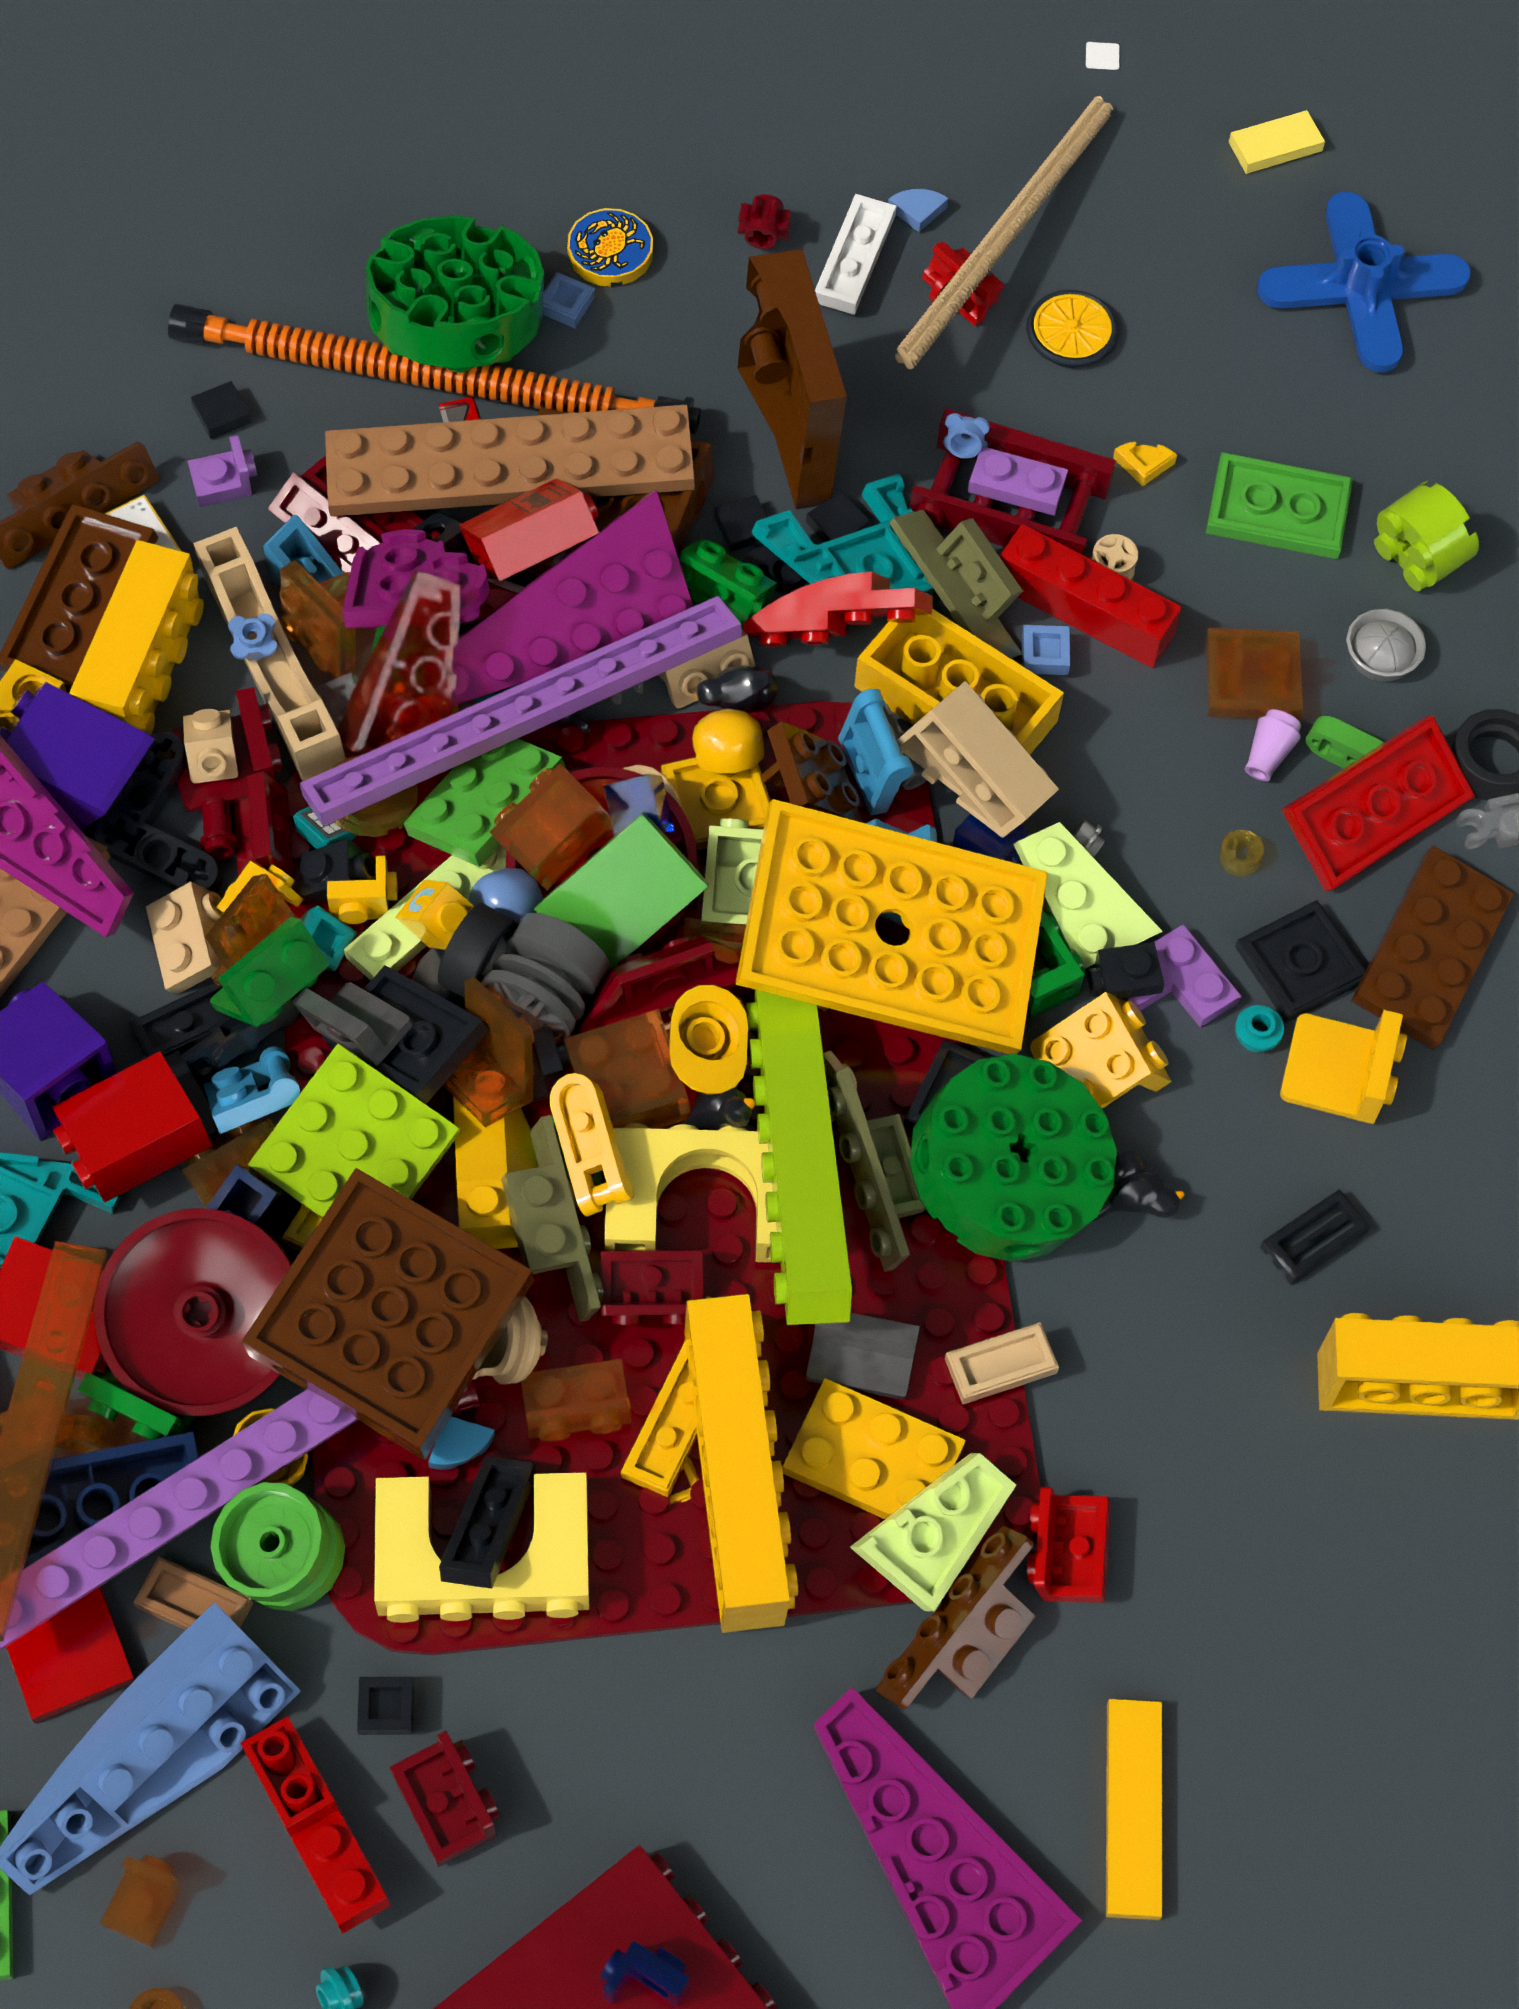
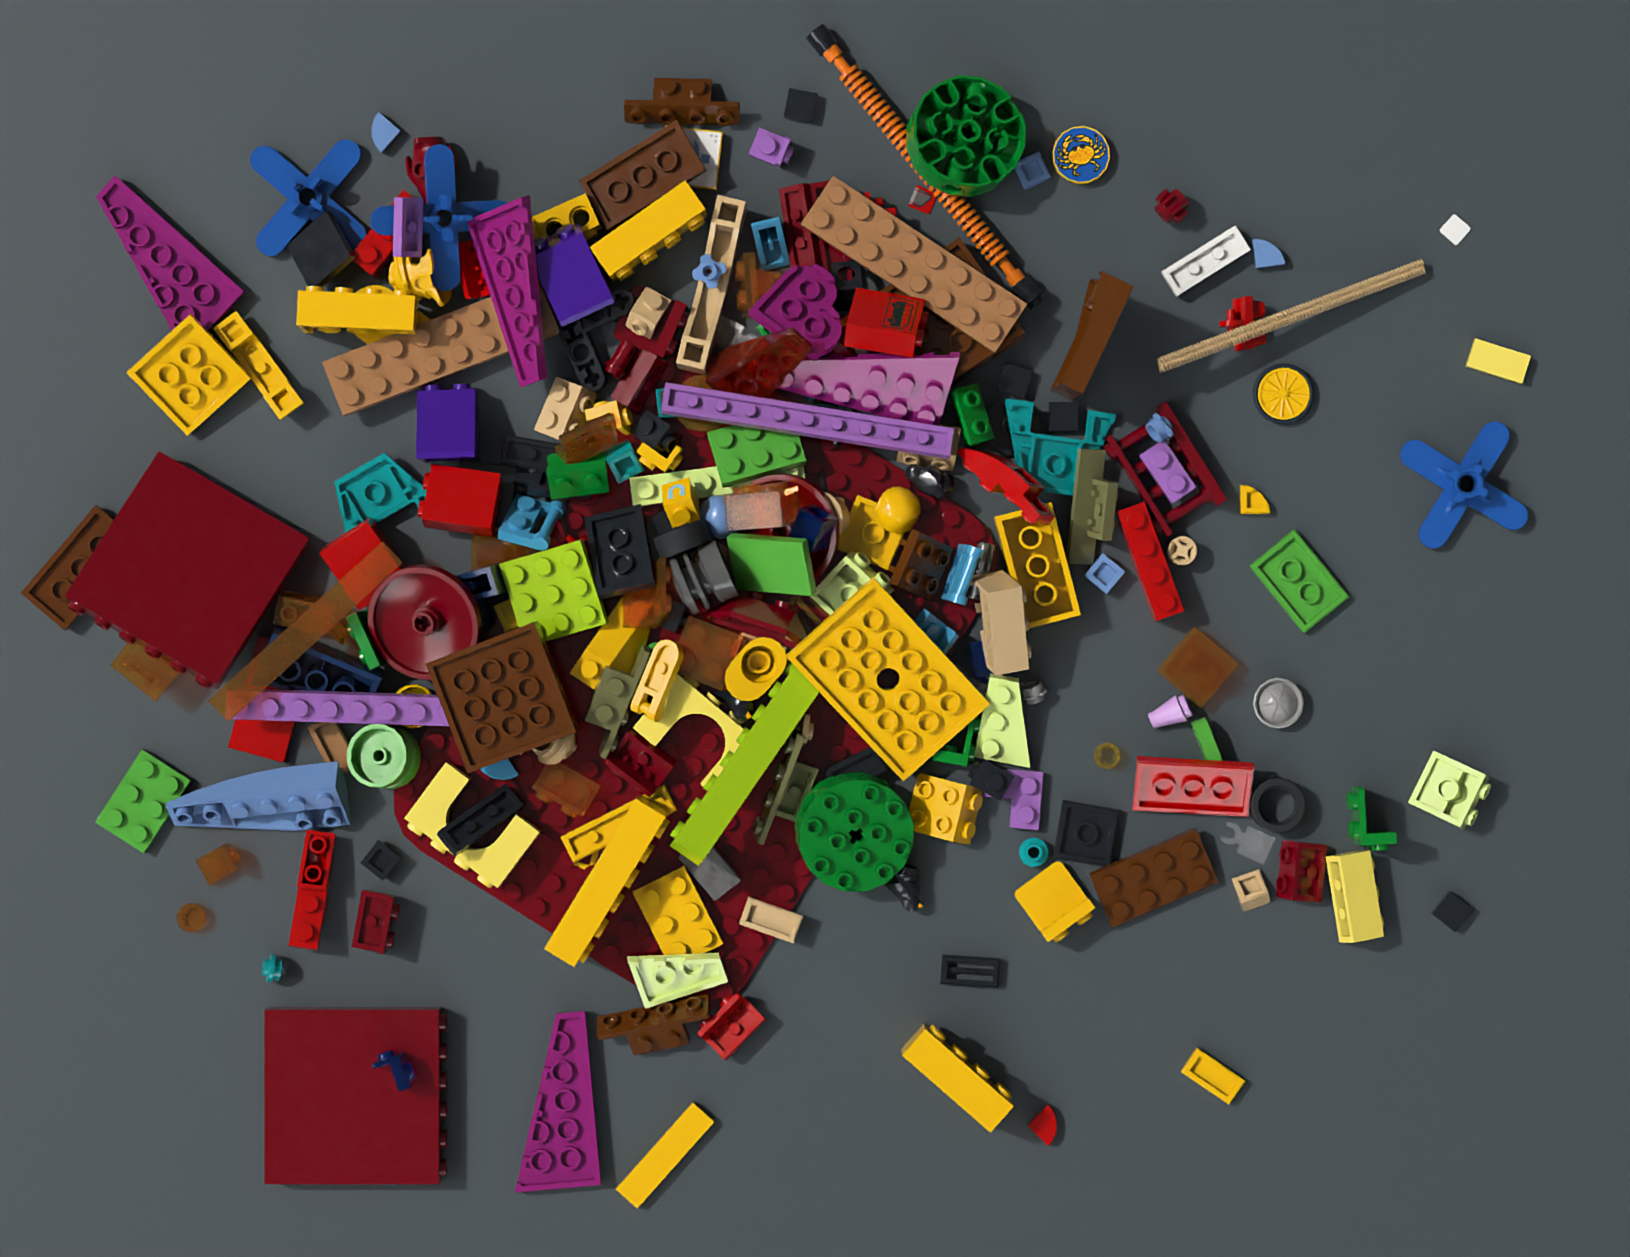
camera: 45 degrees right, 25 degrees up
(355, 1021) = (602, 528): flat silver panel -> none
(1425, 535) = (1349, 664): lime brick -> none

